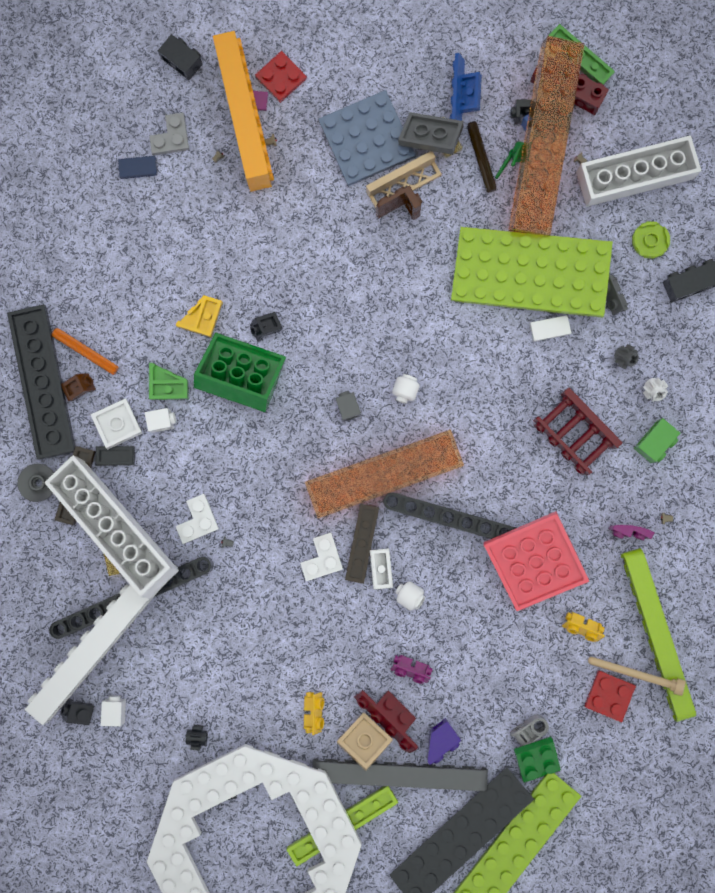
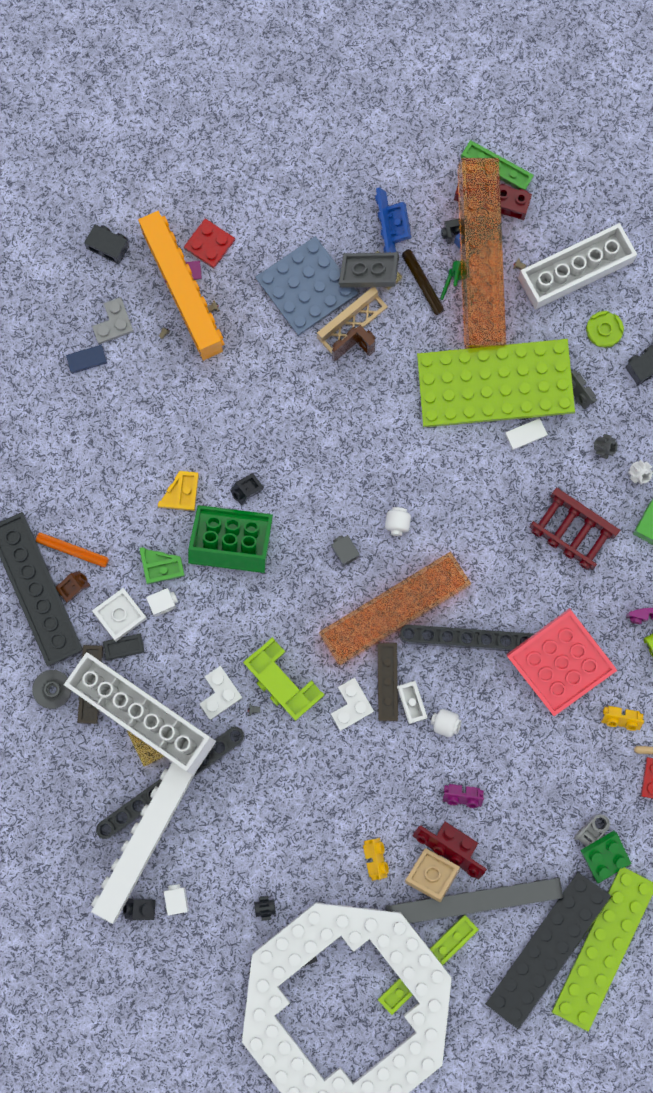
camera: 15 degrees left, 5 degrees down
(253, 521) = (277, 683): none -> lime bracket
(441, 740) = (507, 858): dark purple slope -> none

